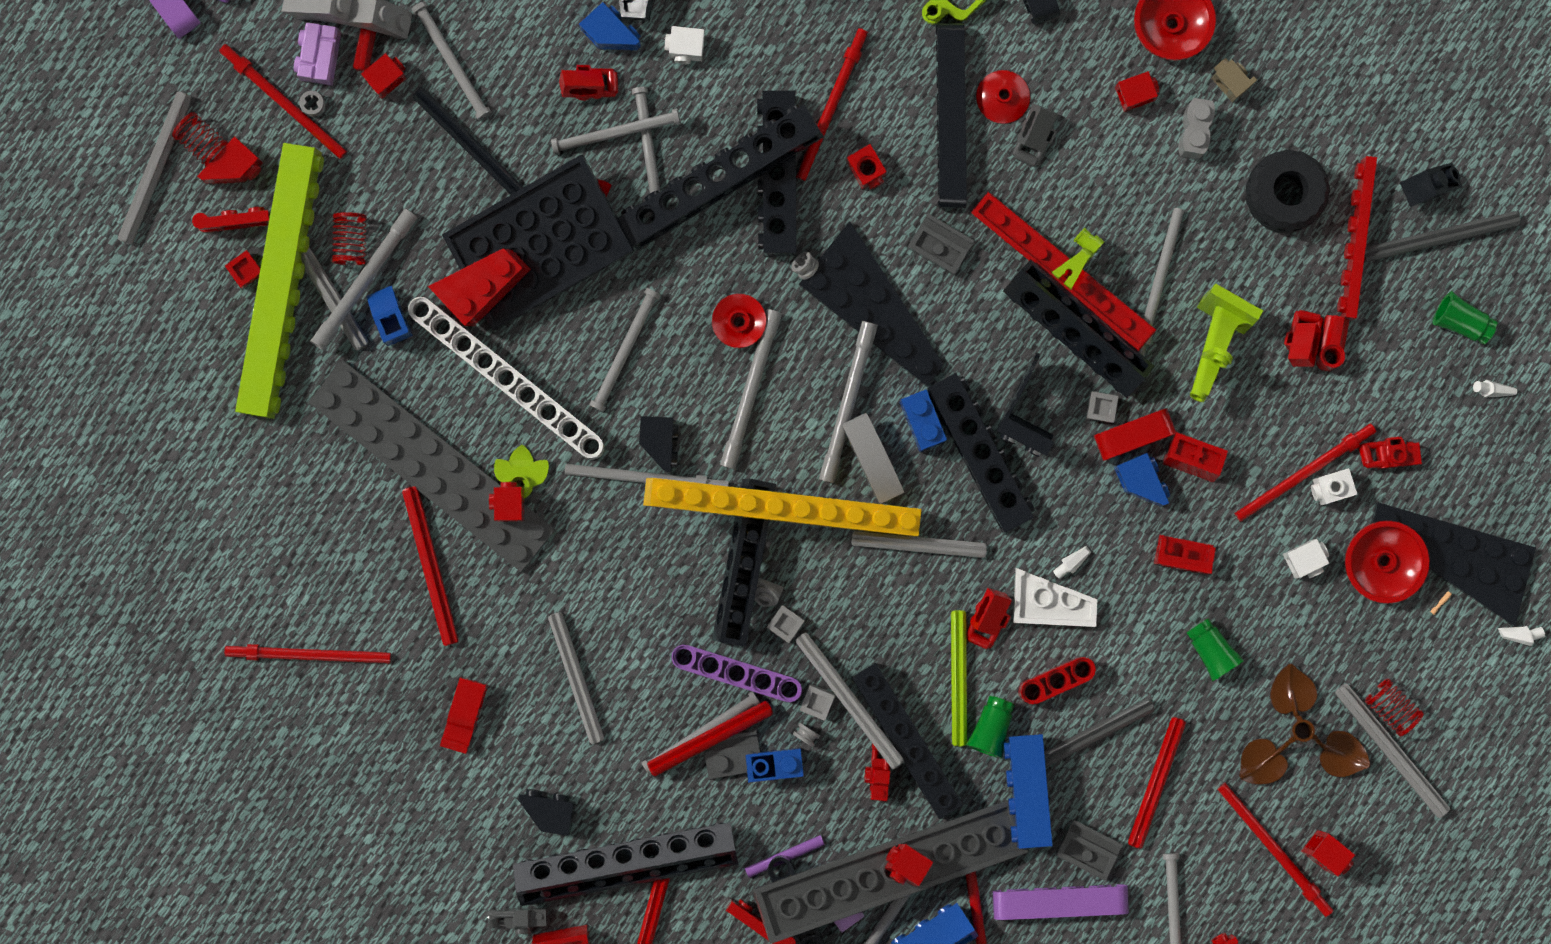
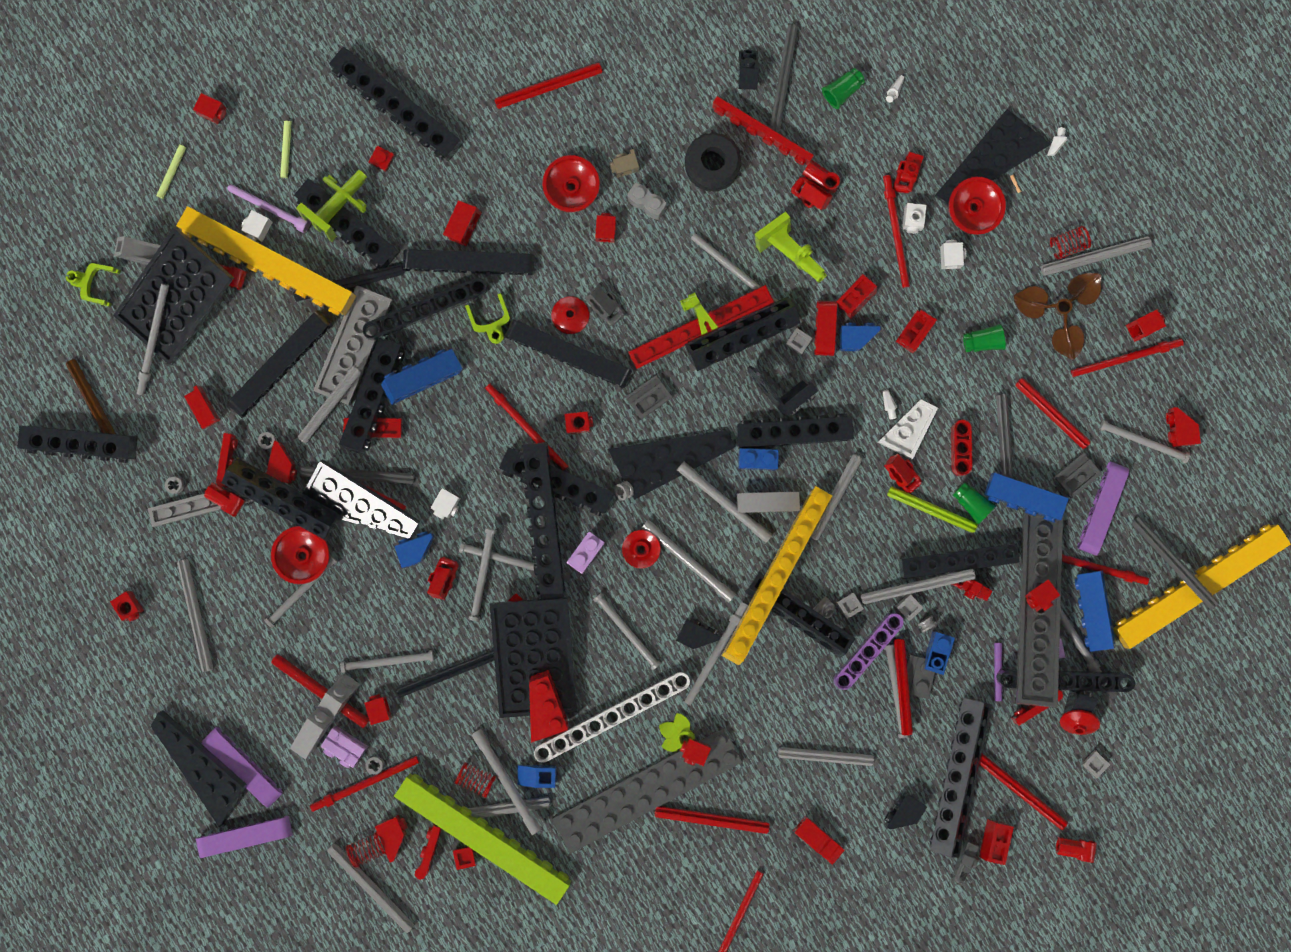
camera: 60 degrees left, 0 degrees up
(702, 251) = (585, 552): none -> lavender brick

